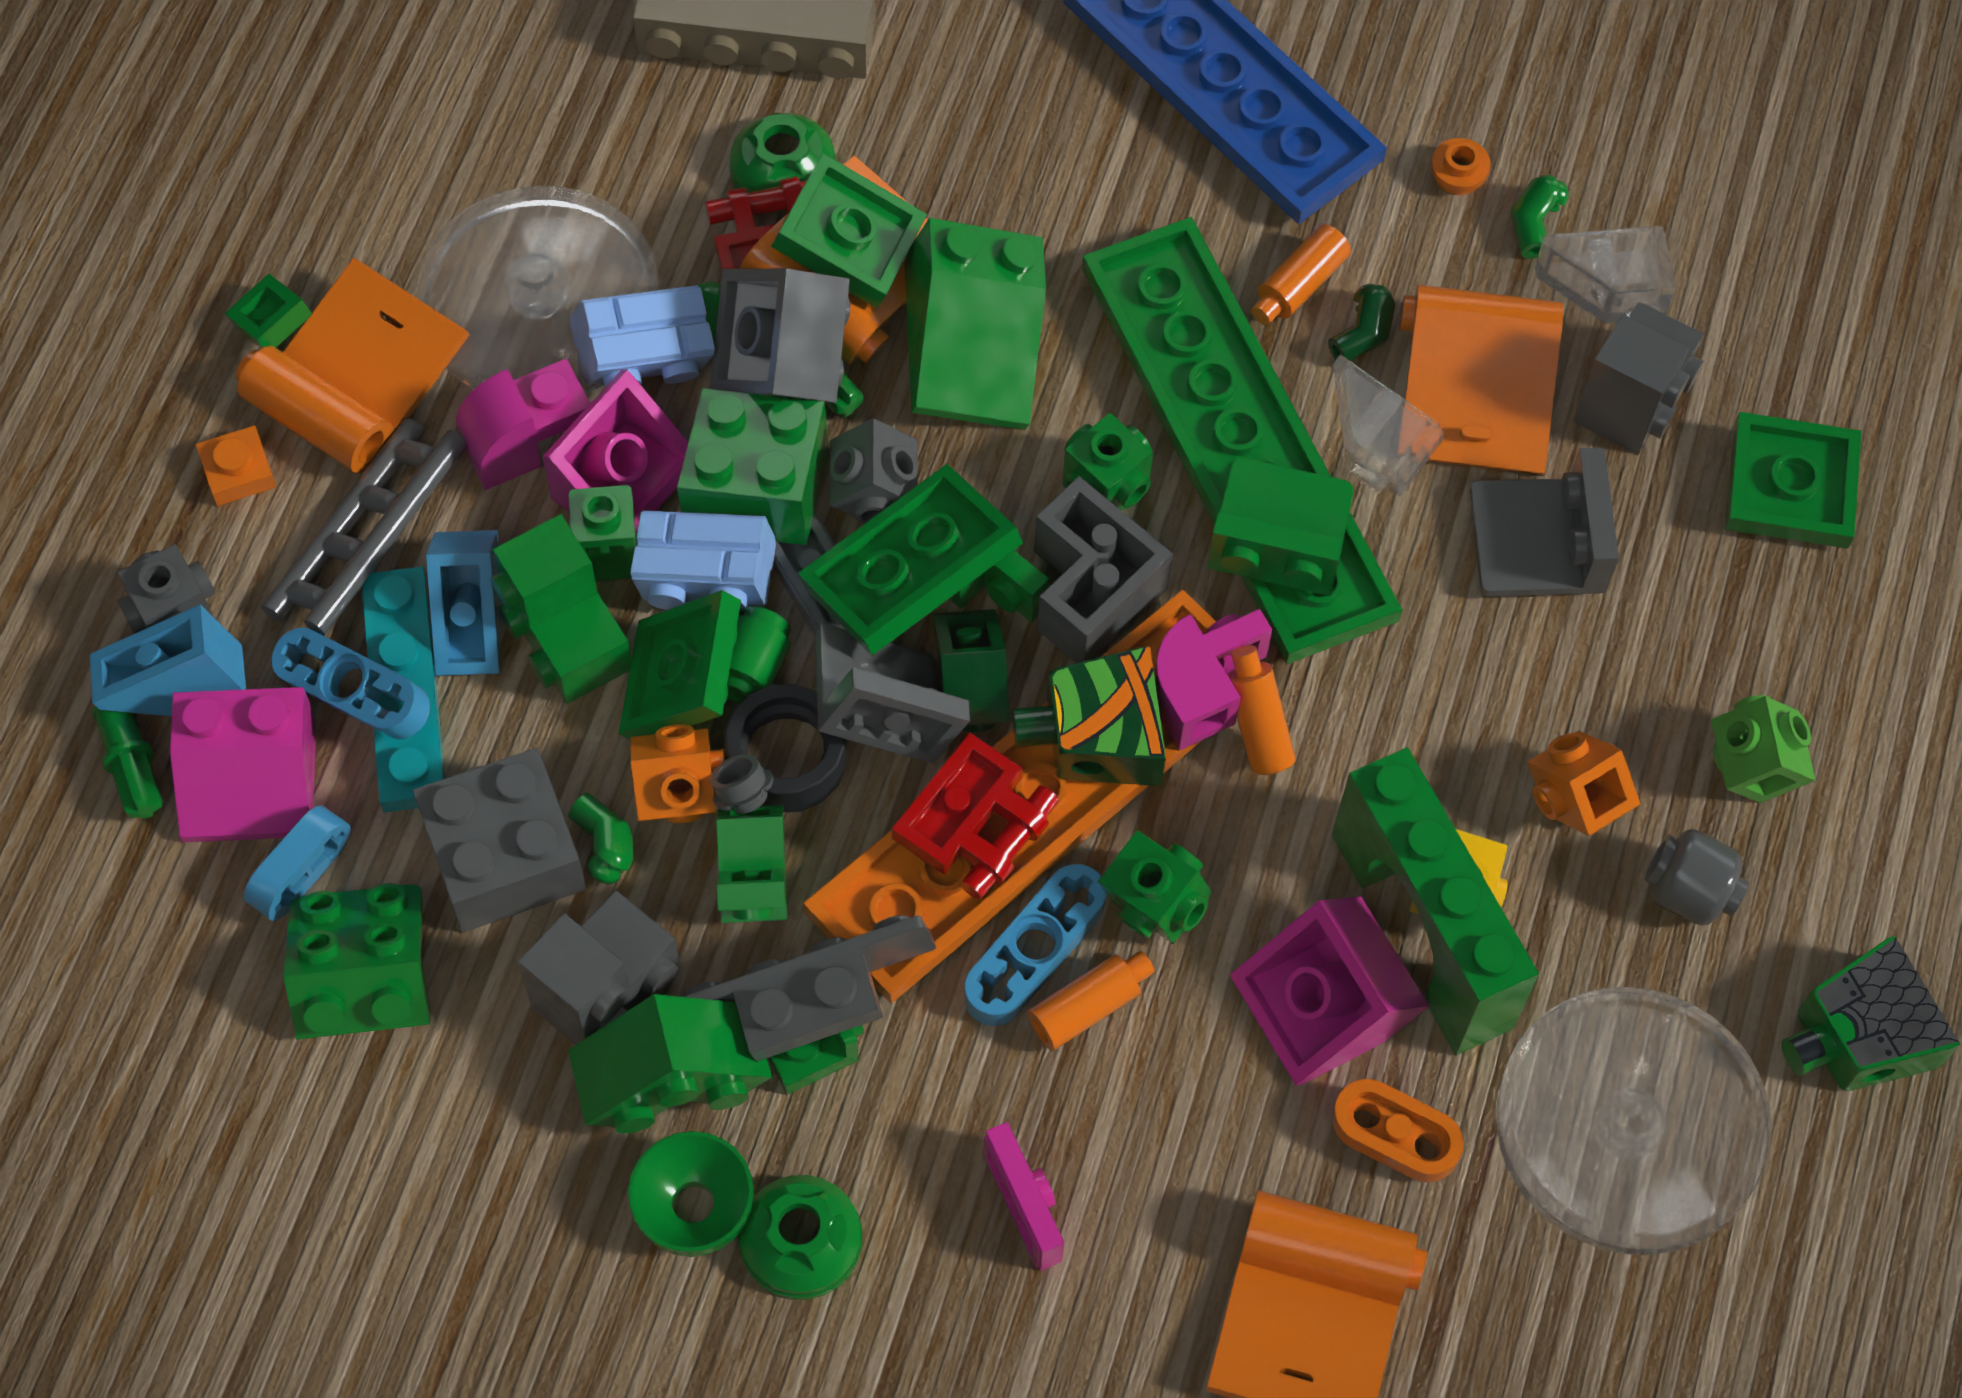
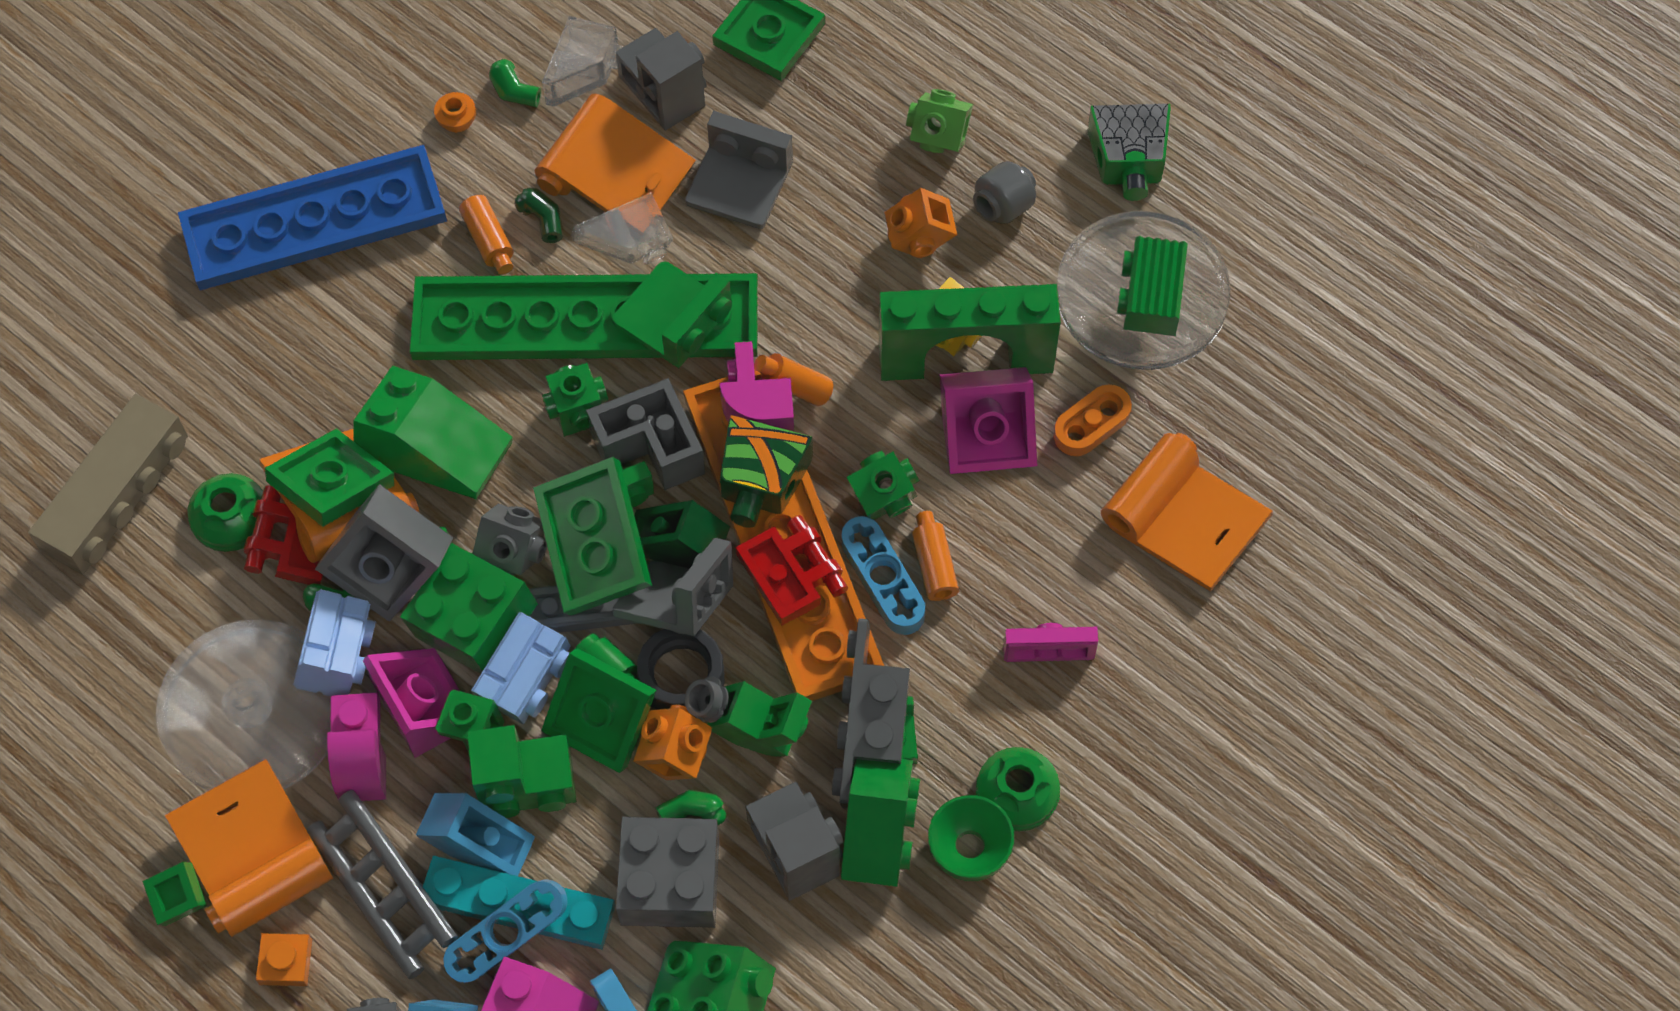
camera: 65 degrees left, 0 degrees up
(1628, 1121) = (1154, 285): none -> green brick

